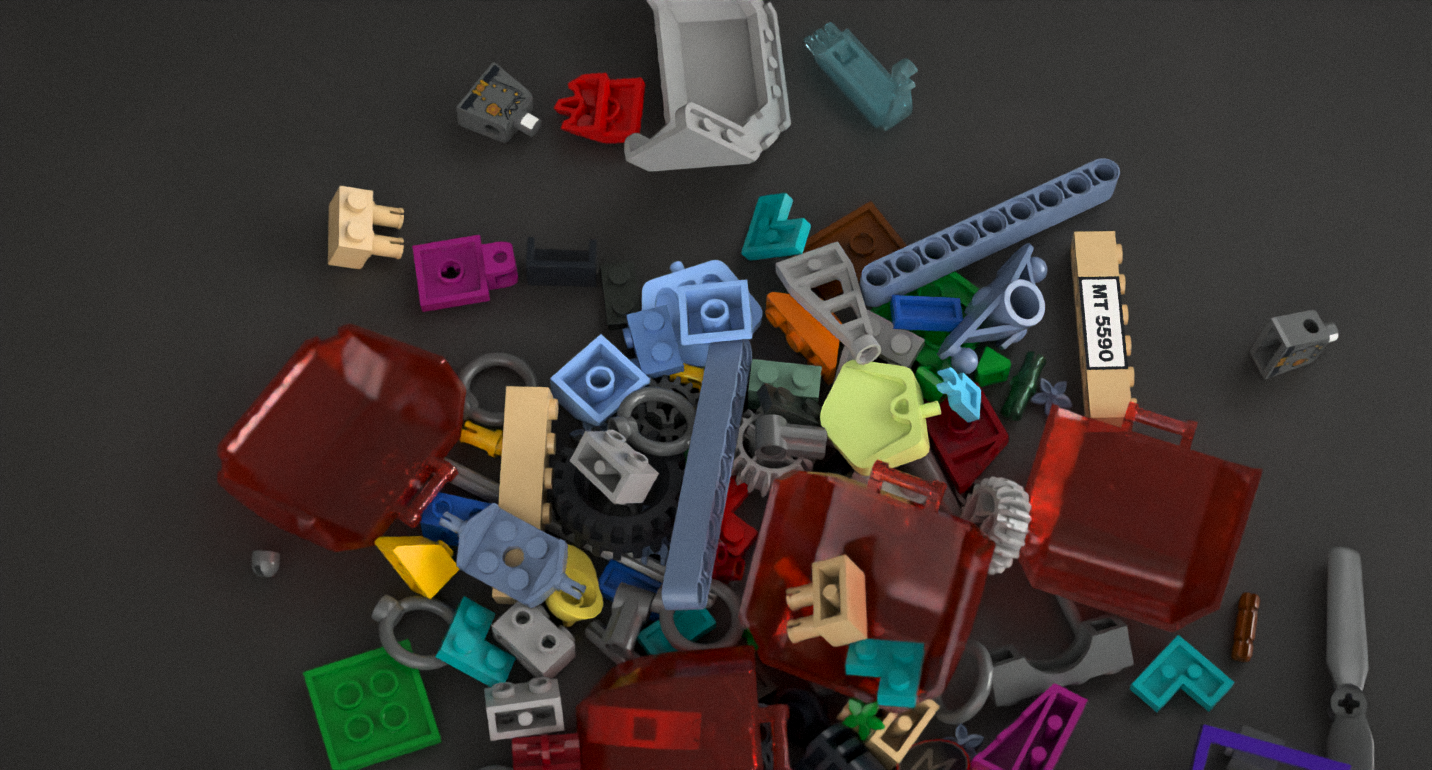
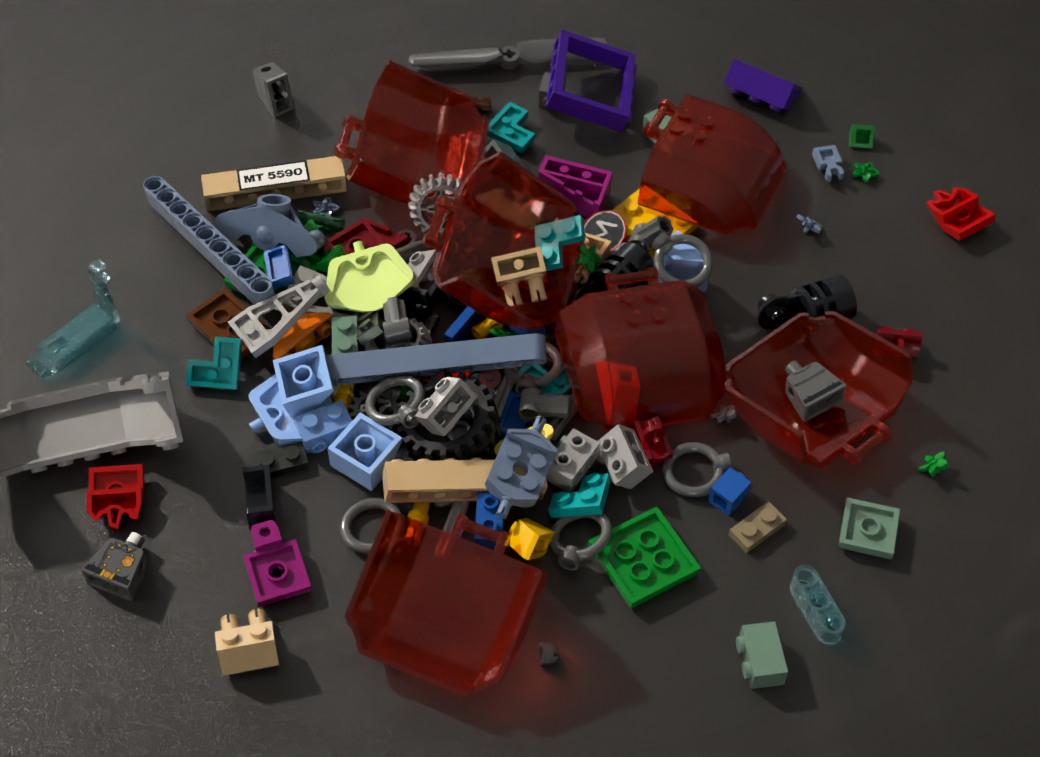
camera: 100 degrees left, 10 degrees down
(962, 393) = (343, 238): medium azure plate -> none

